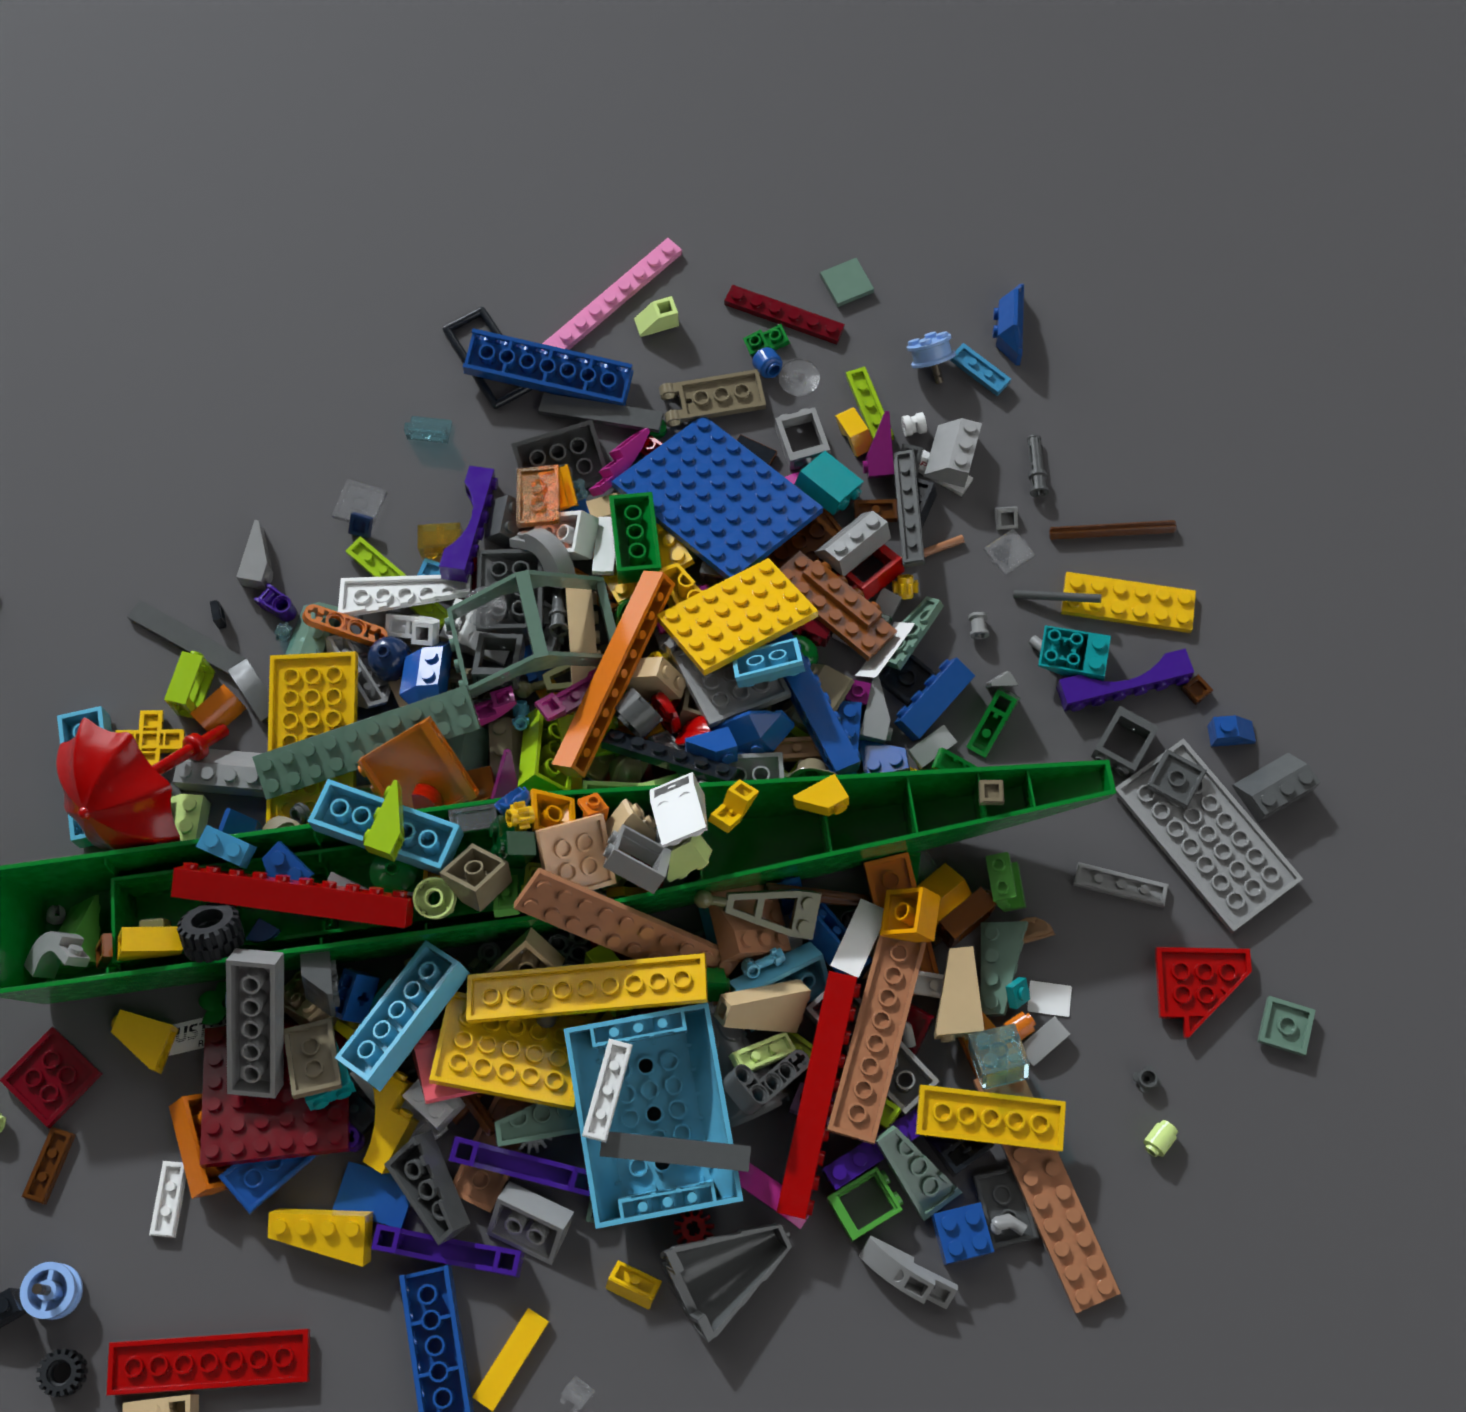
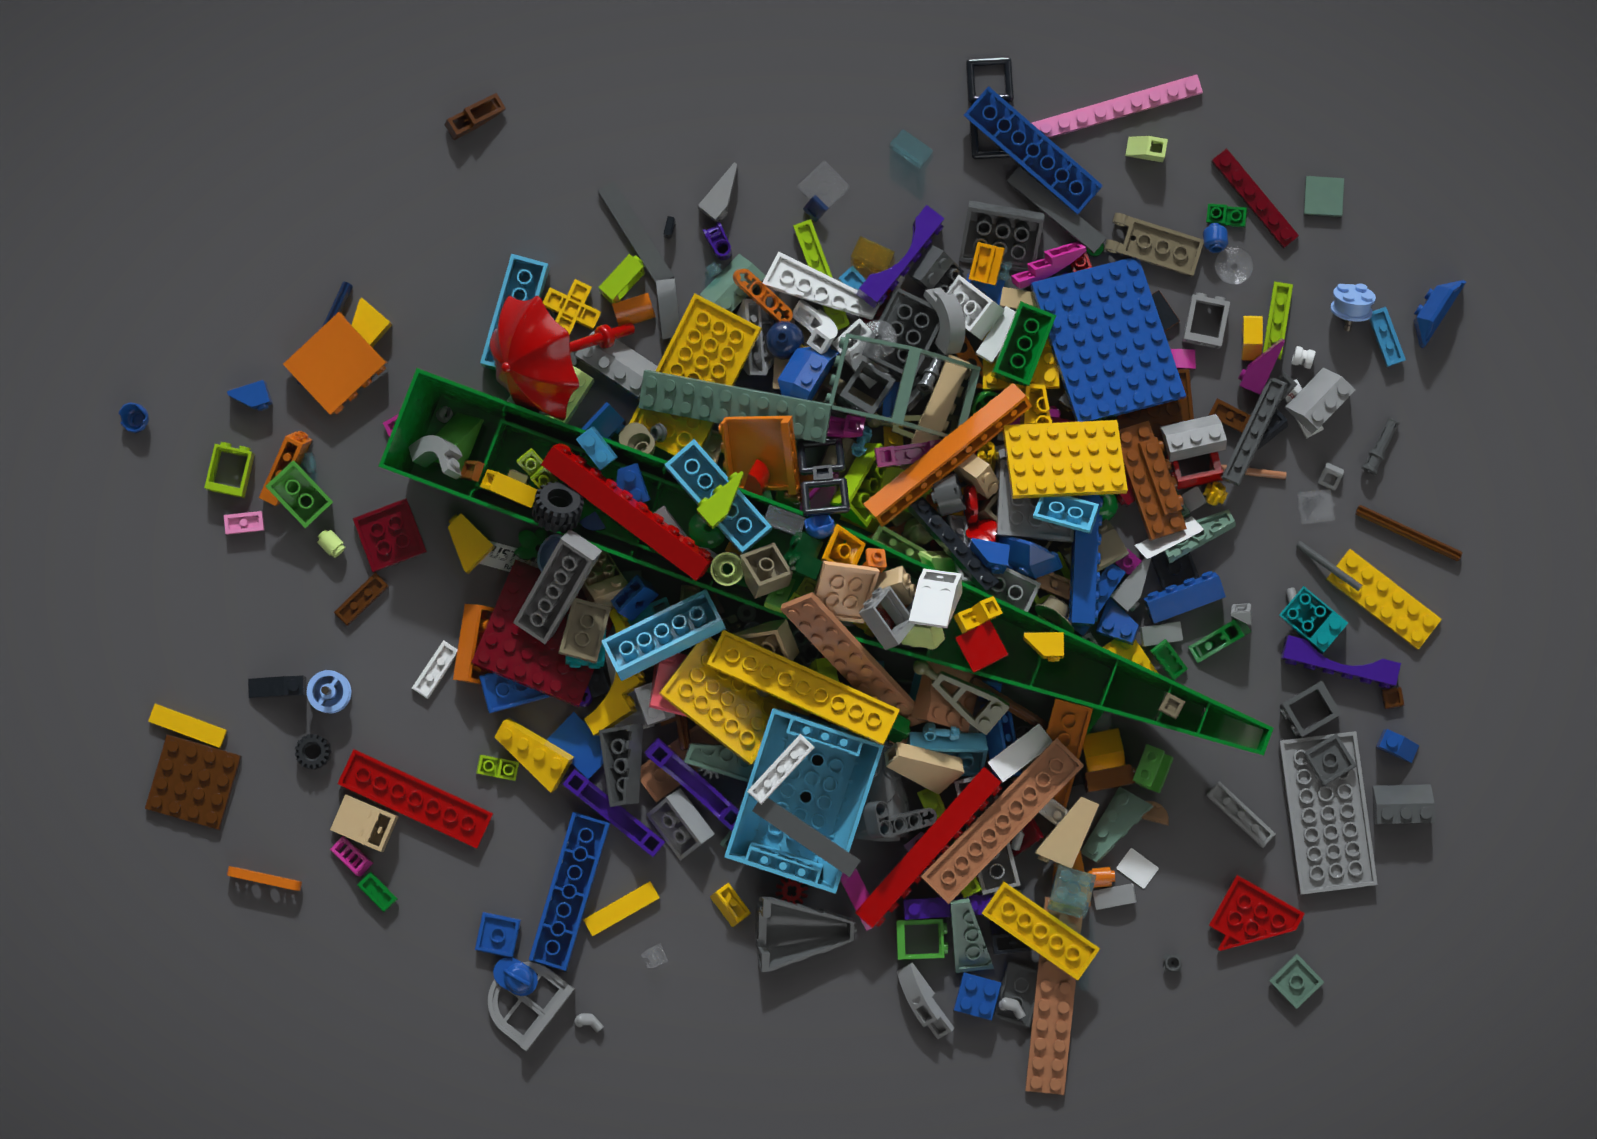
camera: 30 degrees right, 15 degrees up
(169, 907) = (532, 466): none -> lime slope
(290, 1273) = (497, 767): none -> lime slope
(320, 981) = (615, 577): dark grey slope -> none
(494, 759) = (823, 477): none -> black bar
(520, 816) = (818, 544): yellow gear -> none
(538, 496) = (966, 265): clear orange plate -> none
(756, 837) = (981, 646): none -> red tile
(764, 1052) = (906, 797): yellowish green tile -> none
(829, 483) = (1204, 374): teal brick -> none
(910, 914) = (1066, 757): light orange slope -> none
(978, 625) = (1254, 555): light grey bush -> none
(1017, 992) = (1115, 852): teal plate -> none
(1160, 1138) = (1155, 1009): yellowish green brick -> none

